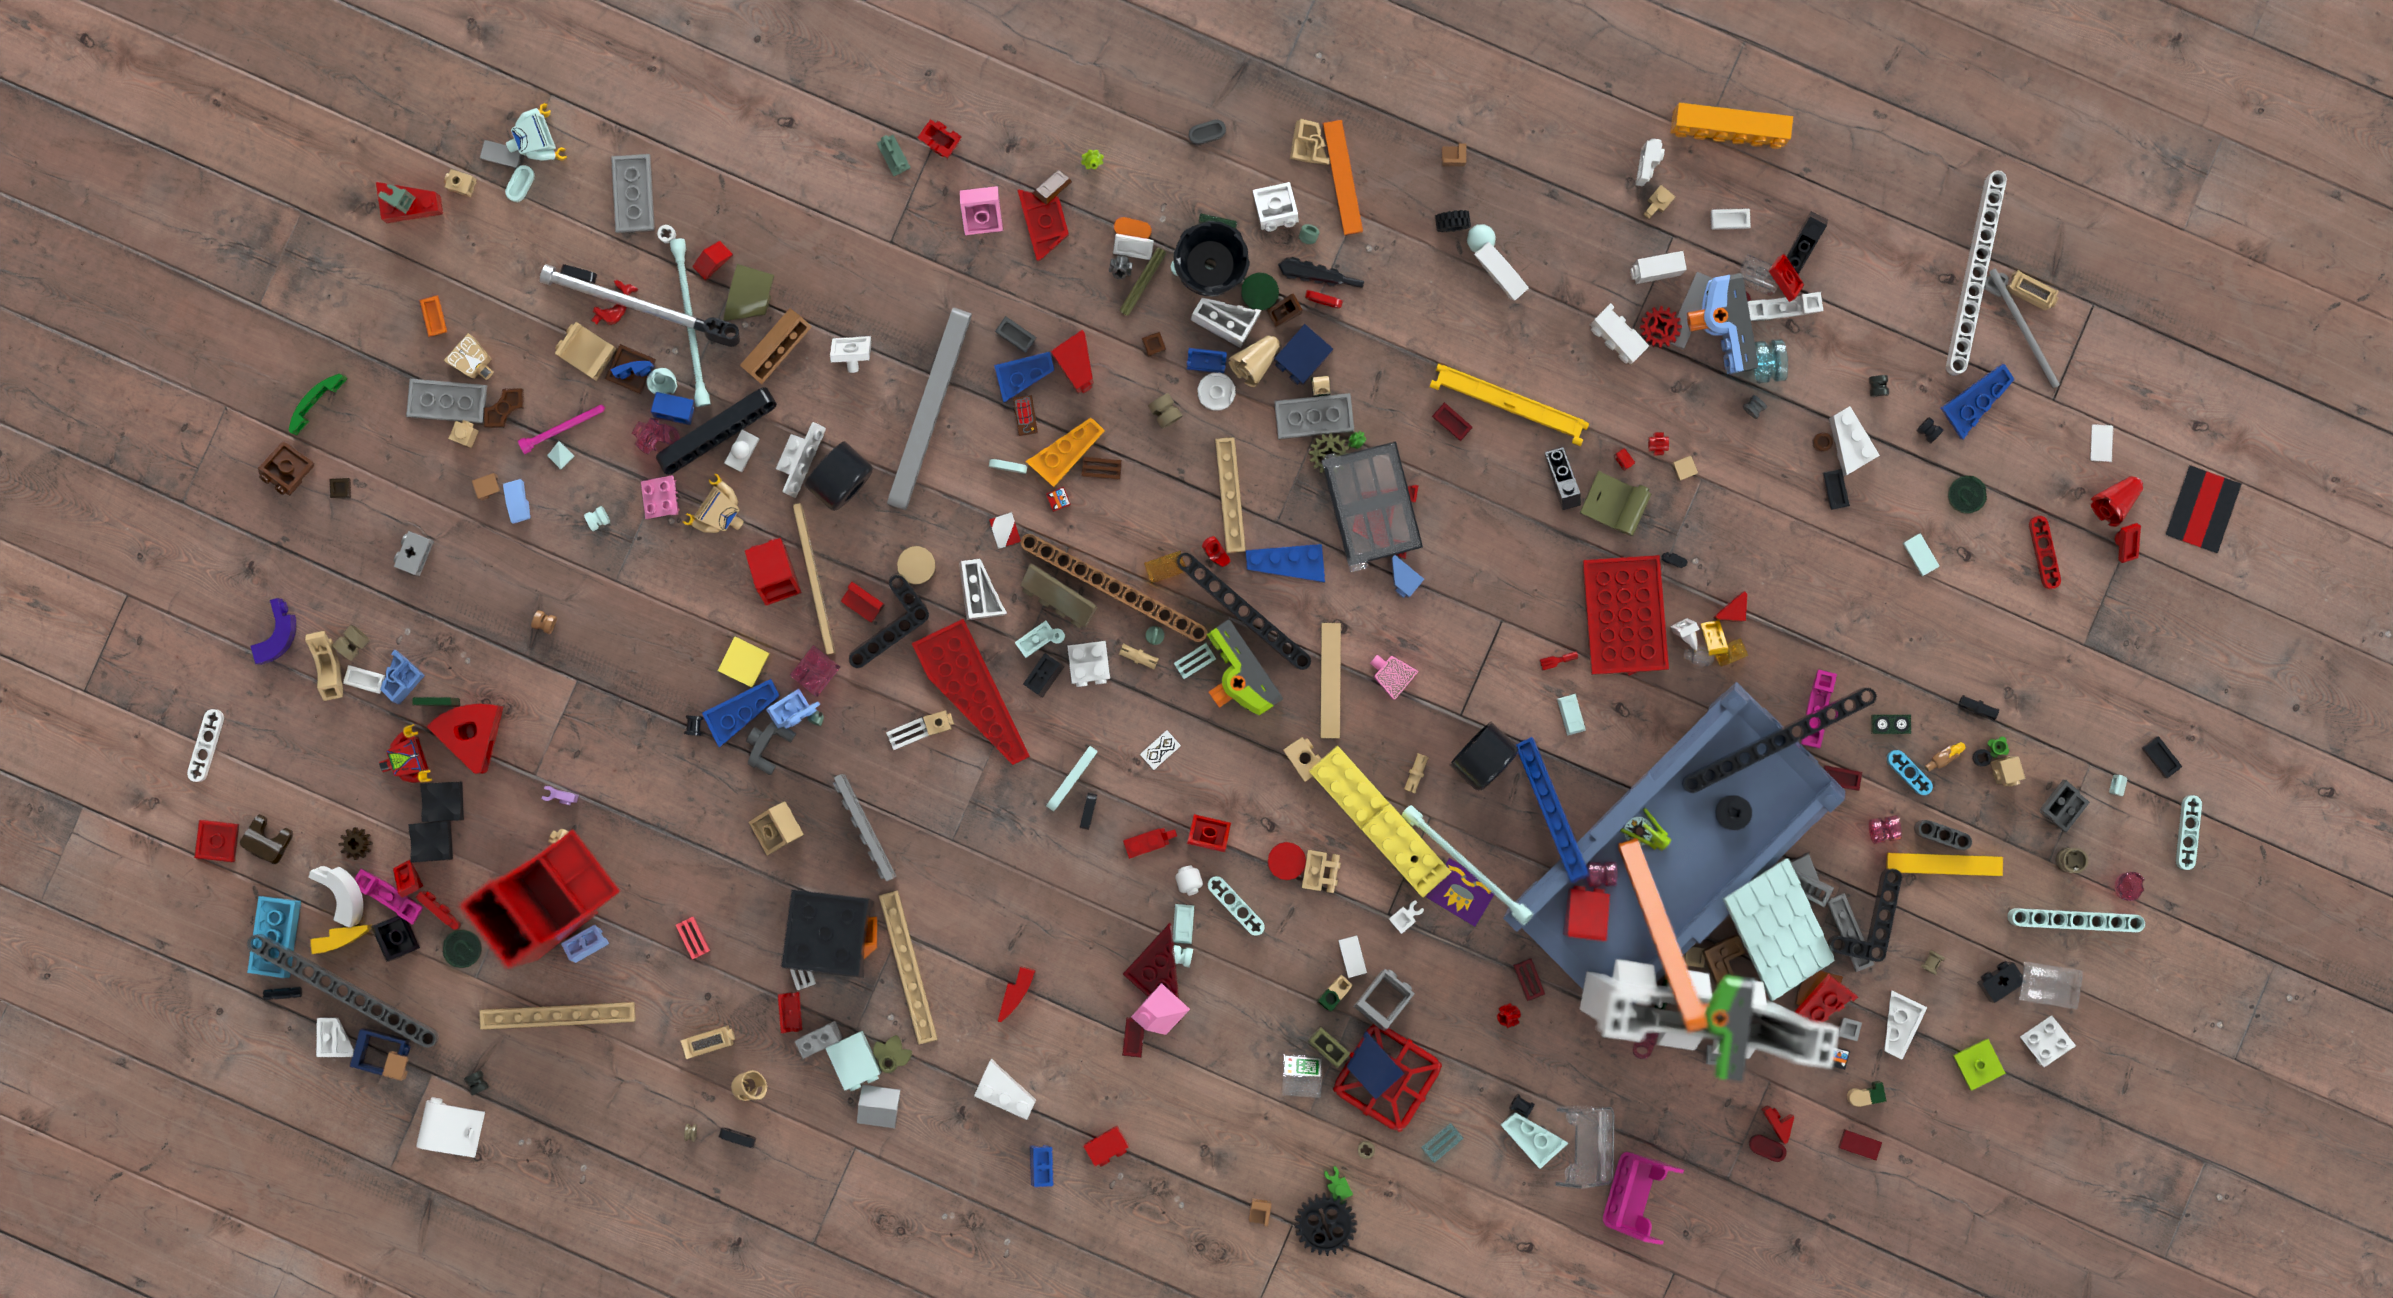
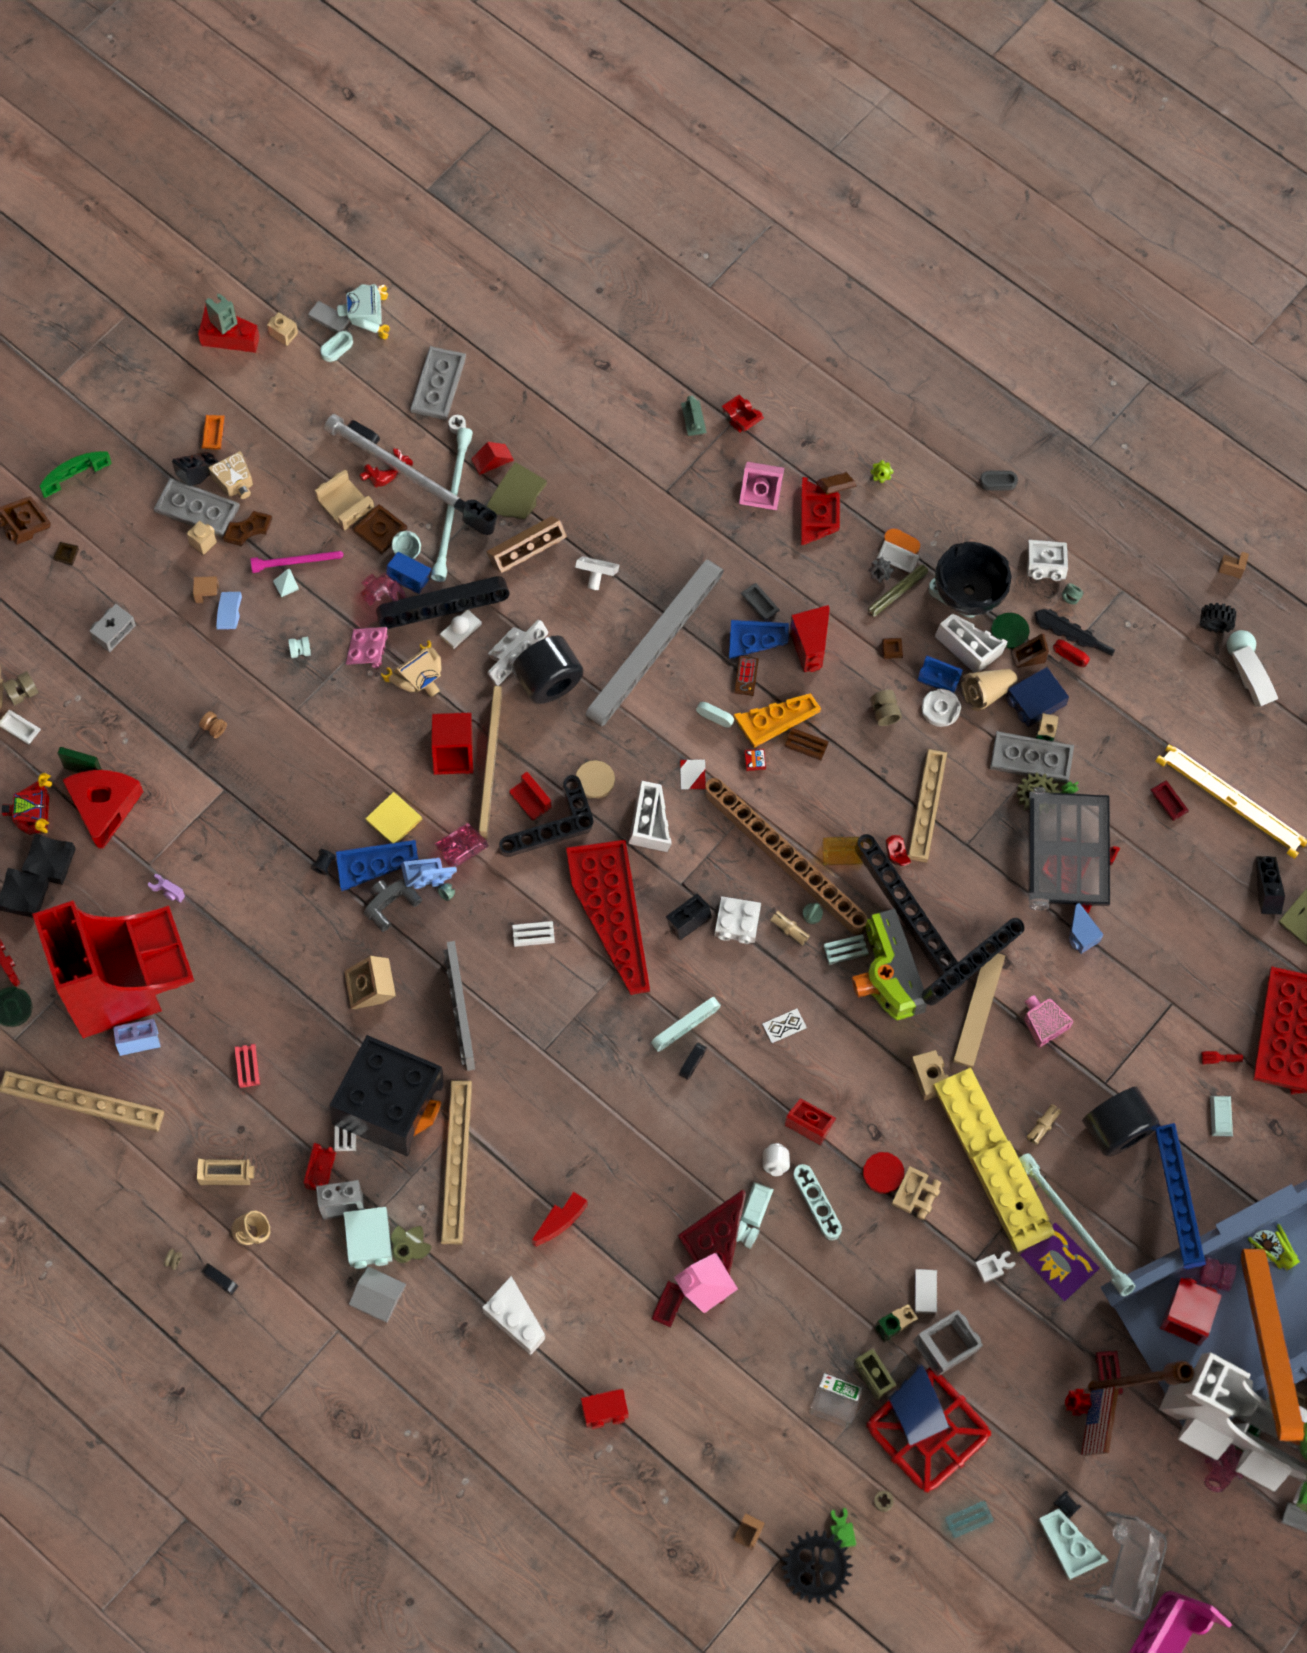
camera: 20 degrees right, 20 degrees down
(400, 678) = (53, 736): medium blue slope -> none
(431, 361) = (194, 468): none -> black slope
(638, 367) = (389, 524): blue slope -> none
(938, 722) = (568, 930): tan brick -> none
(1038, 638) = (695, 880): light aqua hinge -> none
(1041, 1166) = (529, 1407): blue hinge -> none
(1058, 596) = (729, 841): dark tan slope -> none
(1148, 841) = (745, 1111): red hinge -> none
(1295, 561) = (974, 884): blue wing -> none
(1308, 144) = (1094, 516): tan slope -> none
(1308, 651) = (973, 961): none -> black beam
(1342, 177) = (1119, 555): orange tile -> none
(1532, 1022) = (1104, 1401): none -> flag

